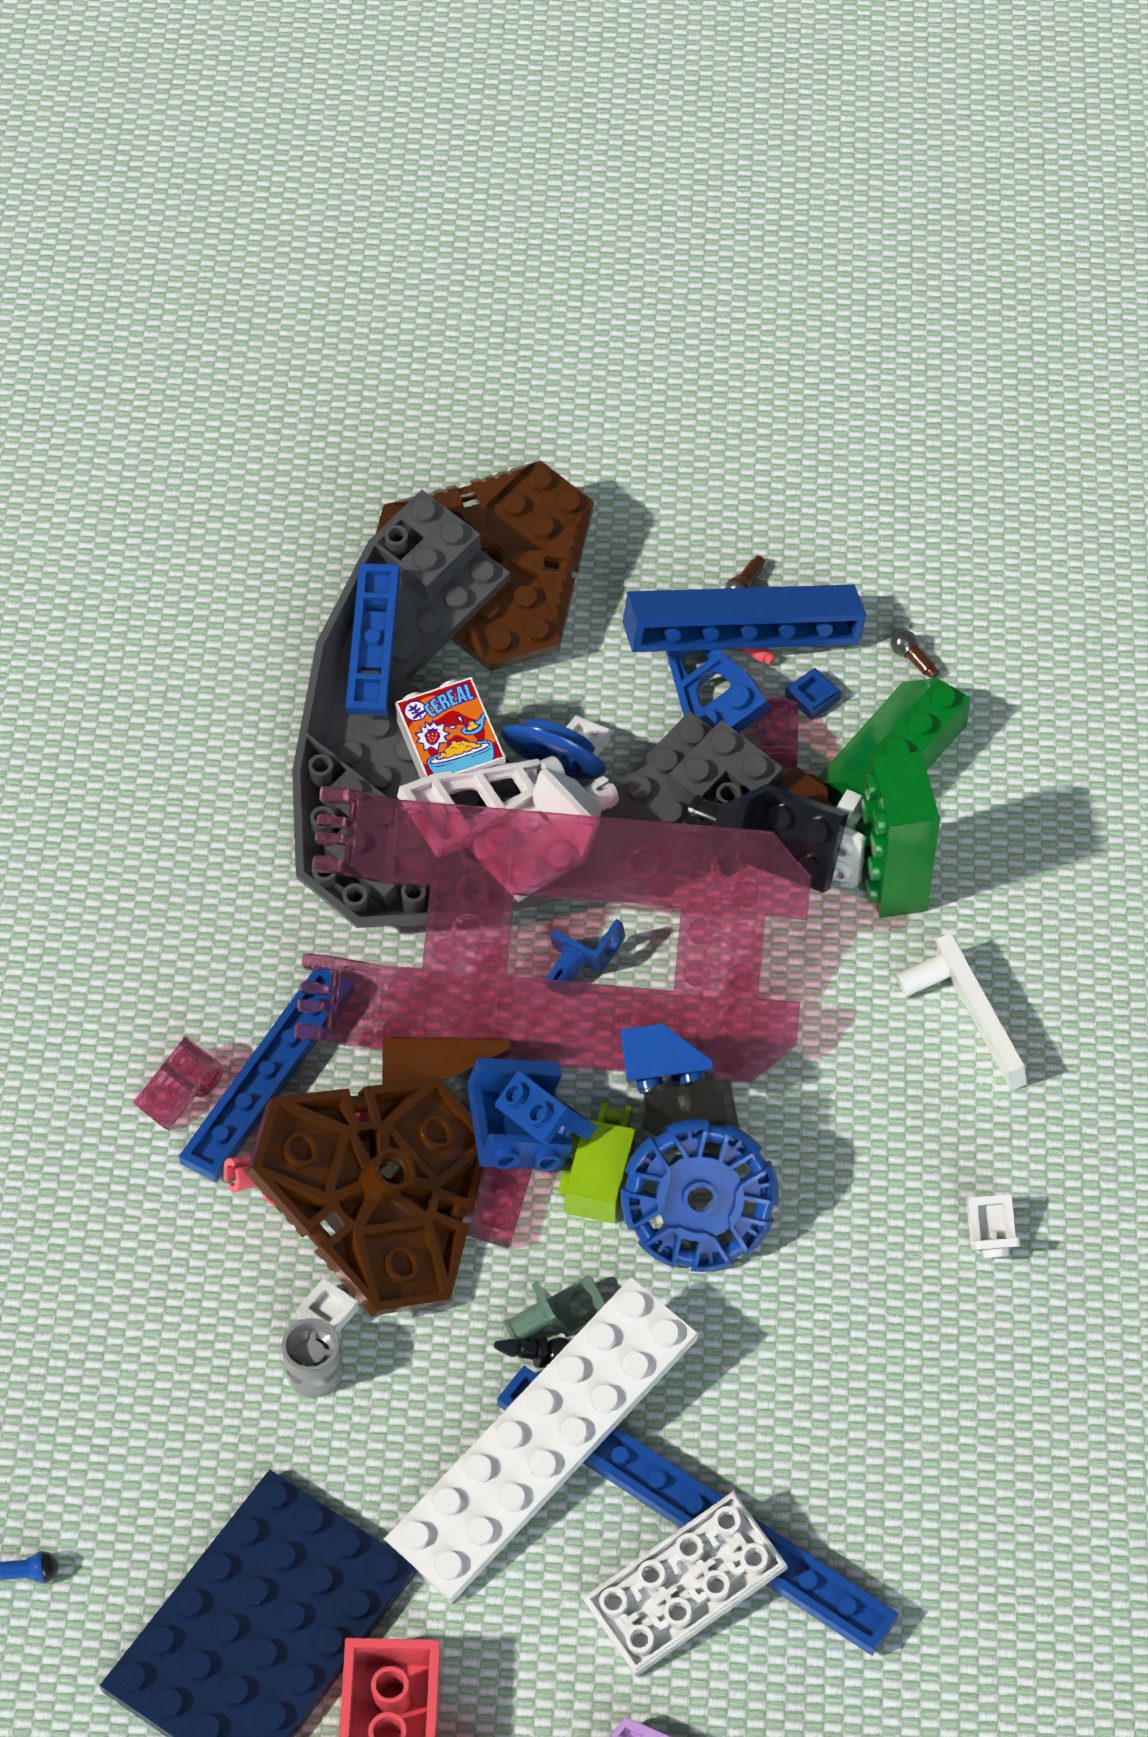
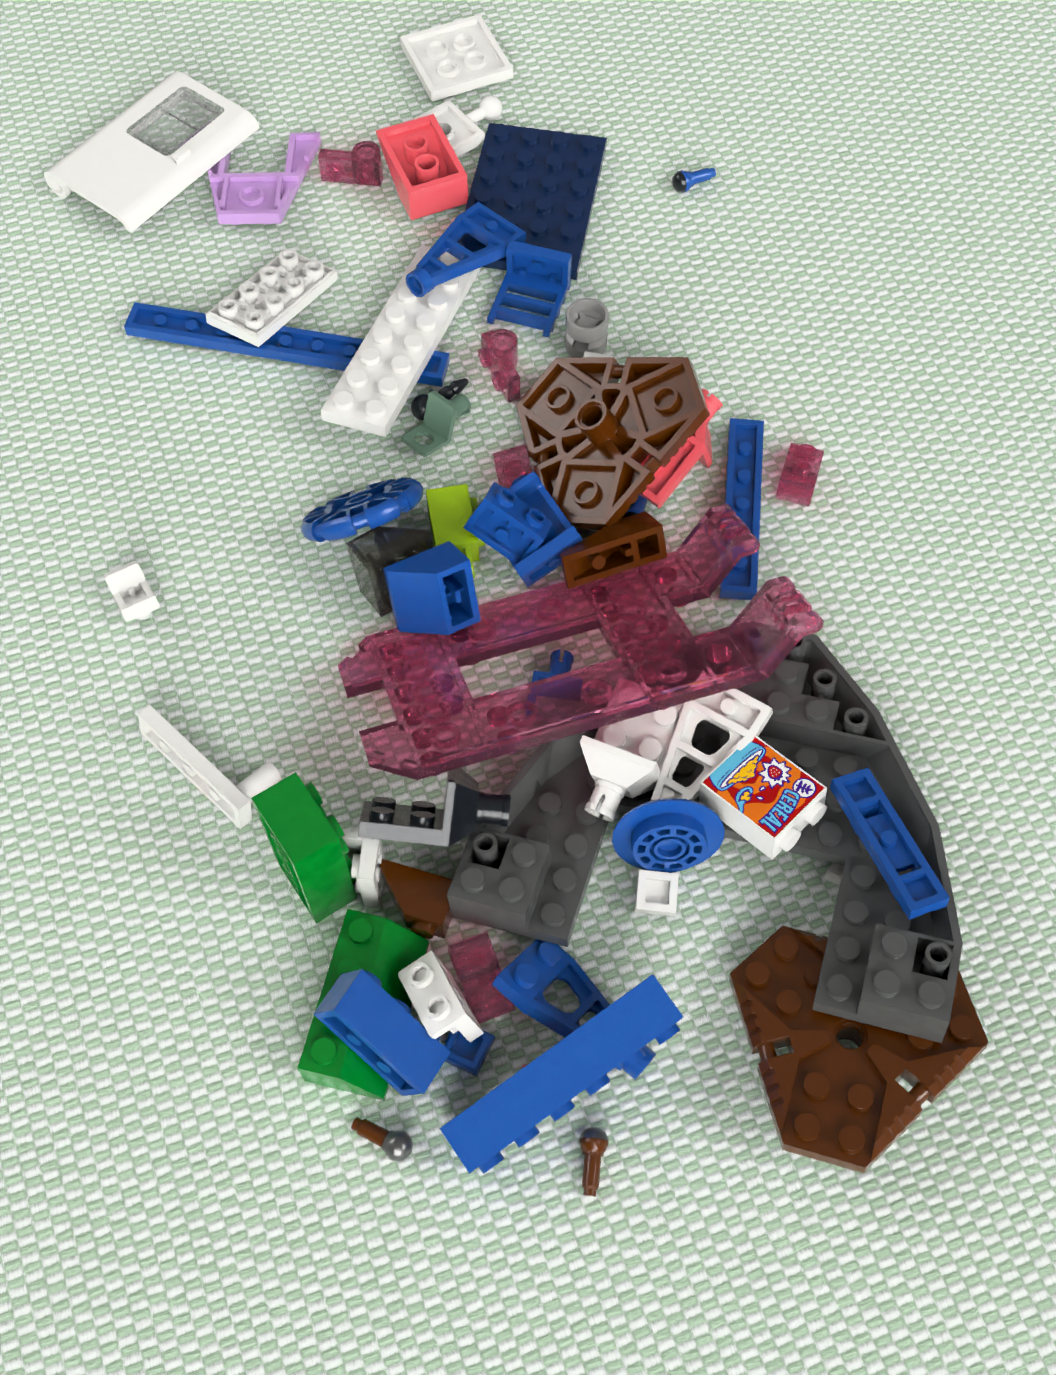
camera: 155 degrees right, 5 degrees up
(326, 1478) = (536, 274): none -> blue plate
(353, 1543) = (477, 222): none -> blue plate
(438, 1363) = (500, 355): none -> clear pink plate
(823, 710) = (438, 998): none -> white bracket
(886, 692) = (382, 1032): none -> blue brick

